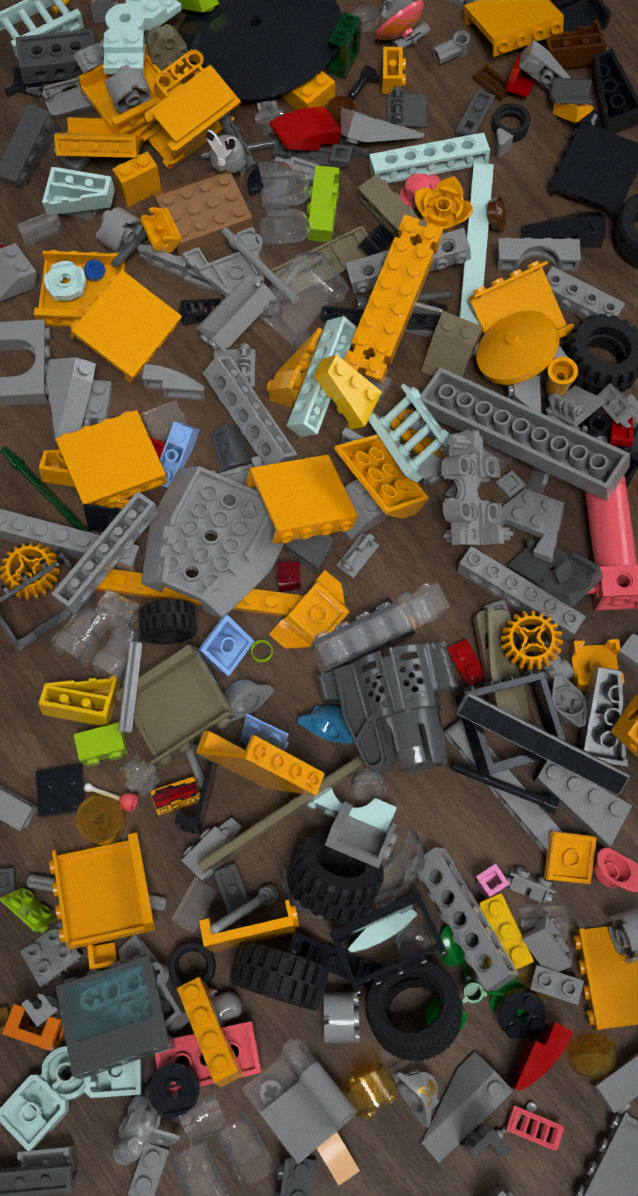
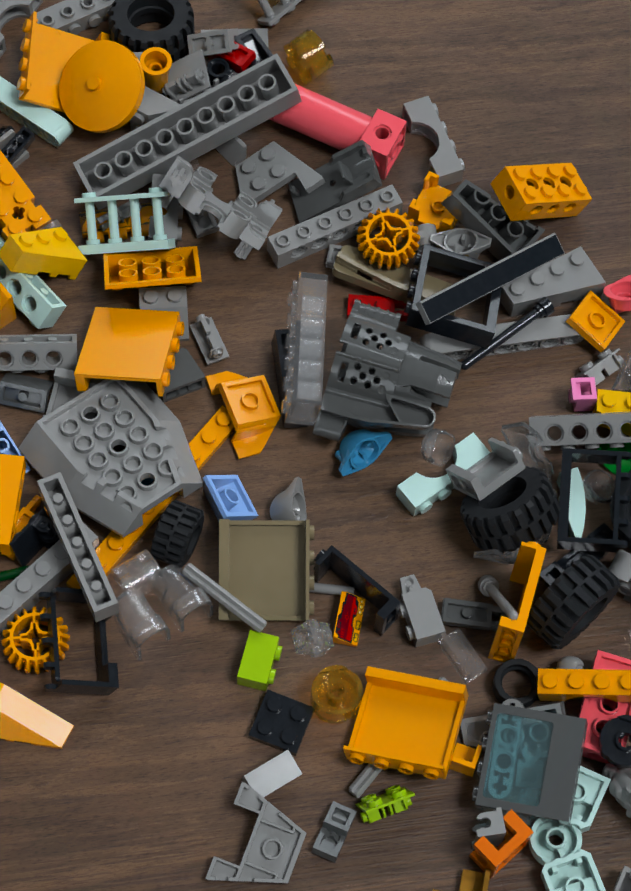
camera: 65 degrees left, 5 degrees down
(49, 956) = (437, 805): light grey hinge -> none
(81, 701) = (207, 654): yellow wedge -> none
(127, 801) = (327, 660): hinge -> none
(261, 660) = (252, 463): lime axle -> none
(262, 764) = (394, 498): light orange panel -> none
(266, 732) = (341, 509): light blue hinge -> none
(278, 817) = (427, 530): dark tan tile -> none
(289, 576) = (195, 408): dark red brick -> none
(349, 435) = (90, 281): light grey tile -> none
(452, 345) = (56, 142): dark tan slope -> none
(510, 484) = (225, 177): light grey tile -> none

